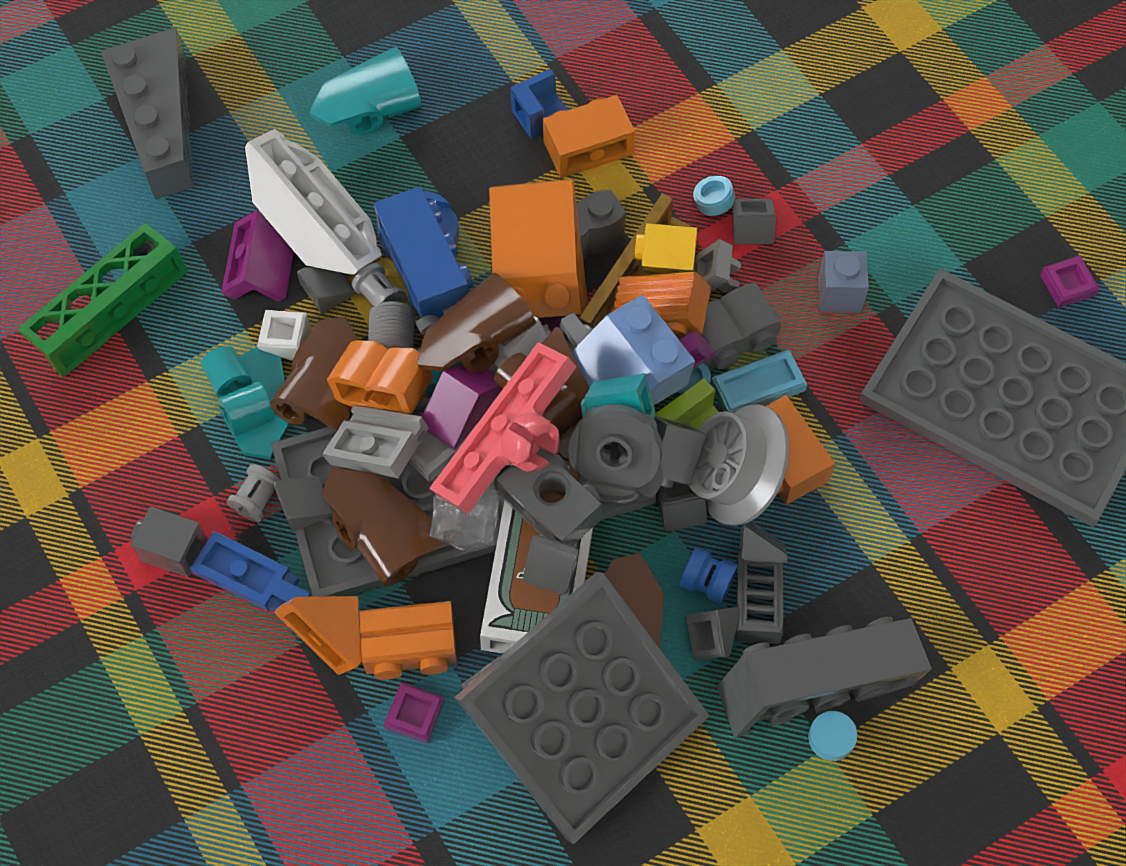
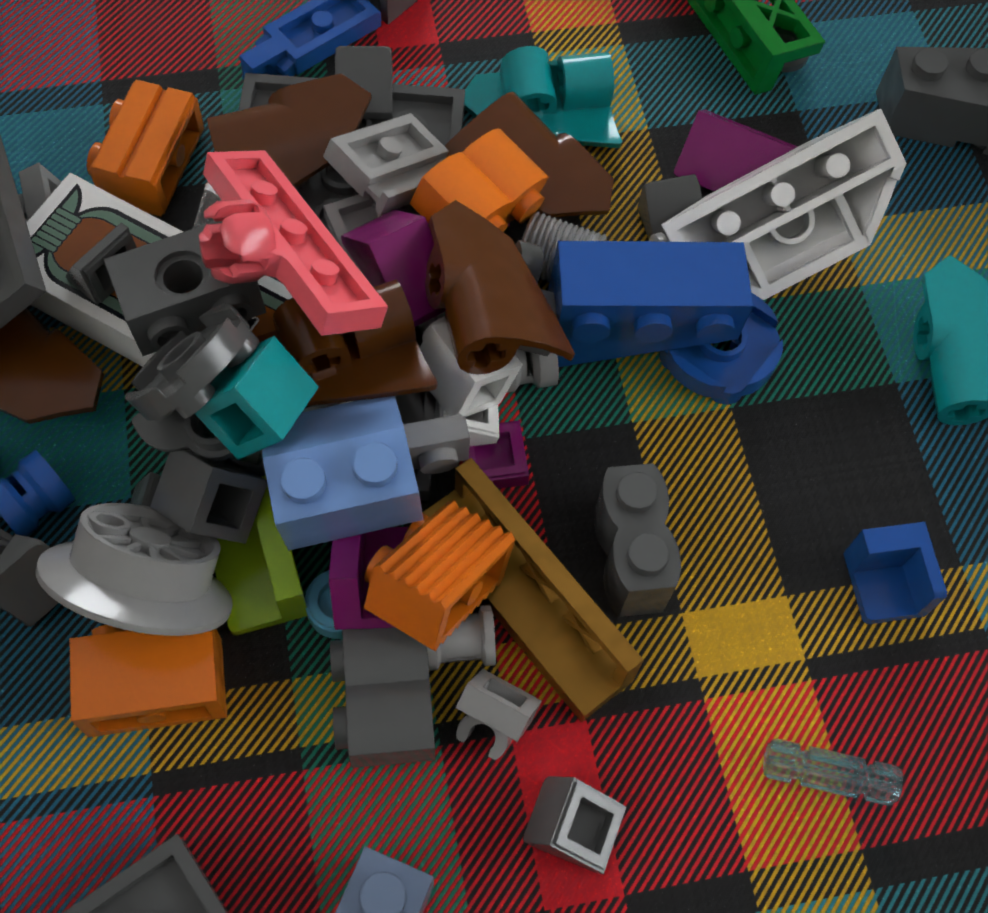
camera: 105 degrees right, 0 degrees up
(253, 493) = (412, 61): light grey bush -> none
(283, 332) = (616, 145): white slope -> none
(327, 627) = (201, 59): orange slope -> none
(414, 713) = (66, 137): magenta tile -> none
(539, 245) = (593, 433): orange slope -> none
(588, 136) = (812, 619): orange brick -> none
(666, 248) = (529, 625): yellow slope -> none
(667, 110) = (833, 772): none -> clear light blue axle
(714, 195) = (638, 774): medium azure tile -> none
(759, 382) = (284, 701): medium azure tile -> none

